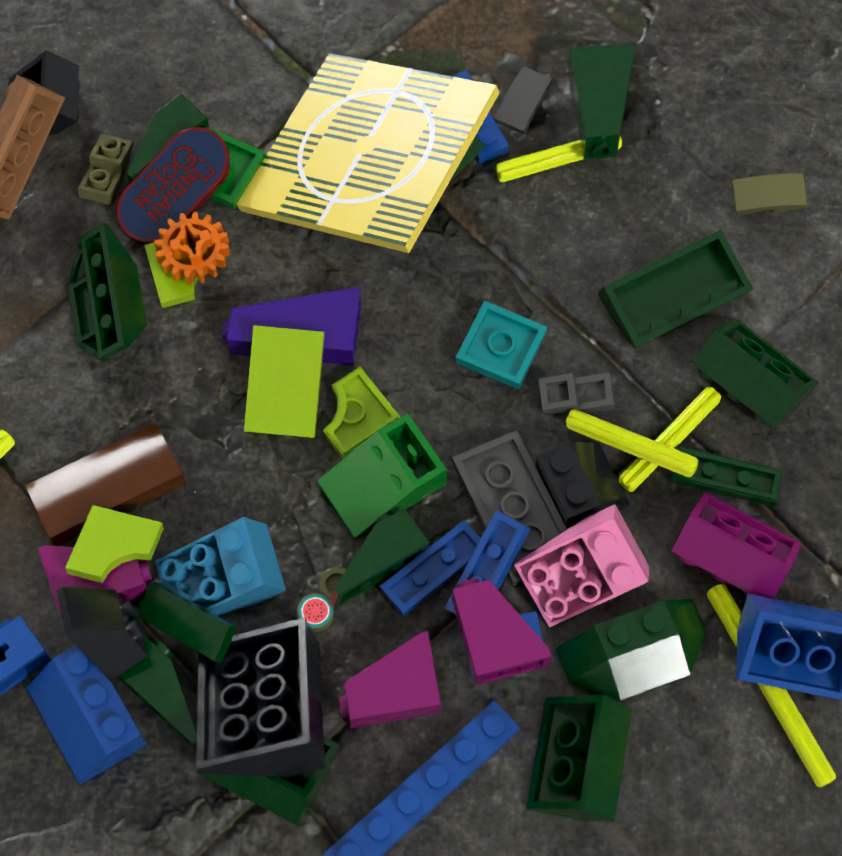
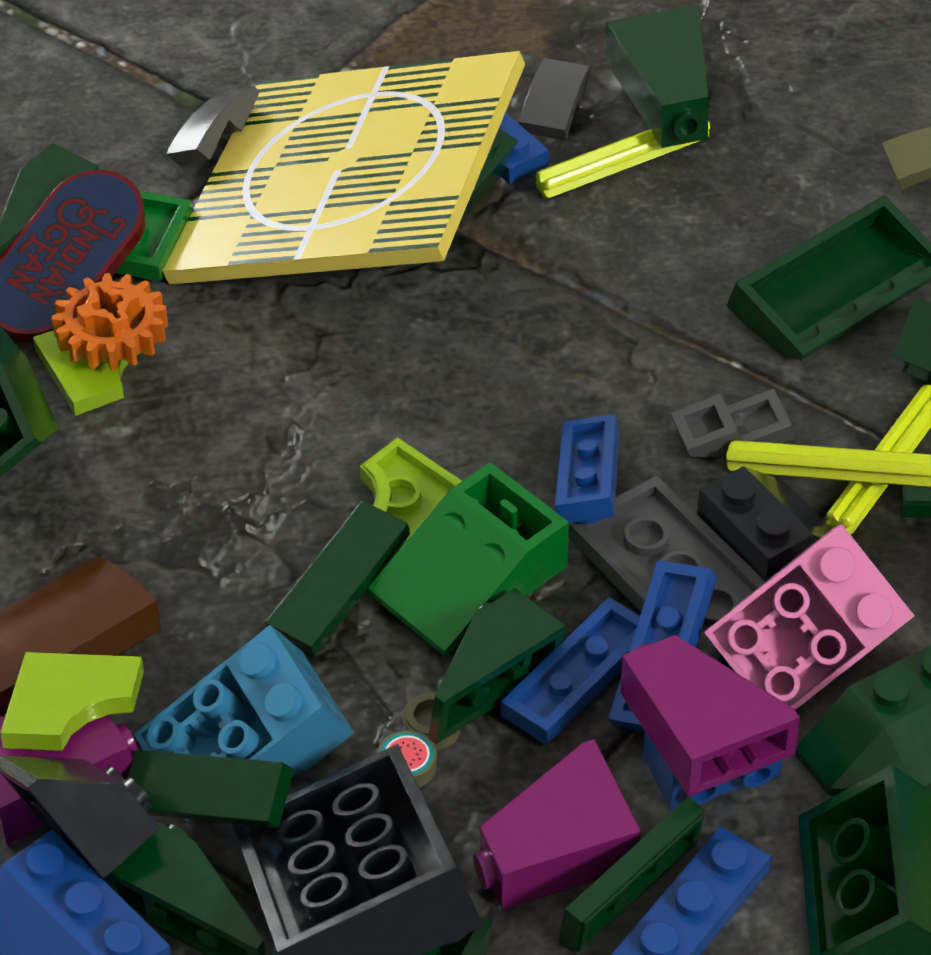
camera: 10 degrees left, 20 degrees down
(284, 381) = (288, 463): lime tile -> none
(297, 79) = (218, 116): none -> dark grey slope
(299, 471) = (338, 577): none -> dark green tile
(329, 312) = (290, 402): dark purple slope -> none
(432, 727) = (631, 875): none -> dark green tile
(472, 419) = (588, 469): none -> blue plate
(501, 345) = (603, 377): teal plate -> none

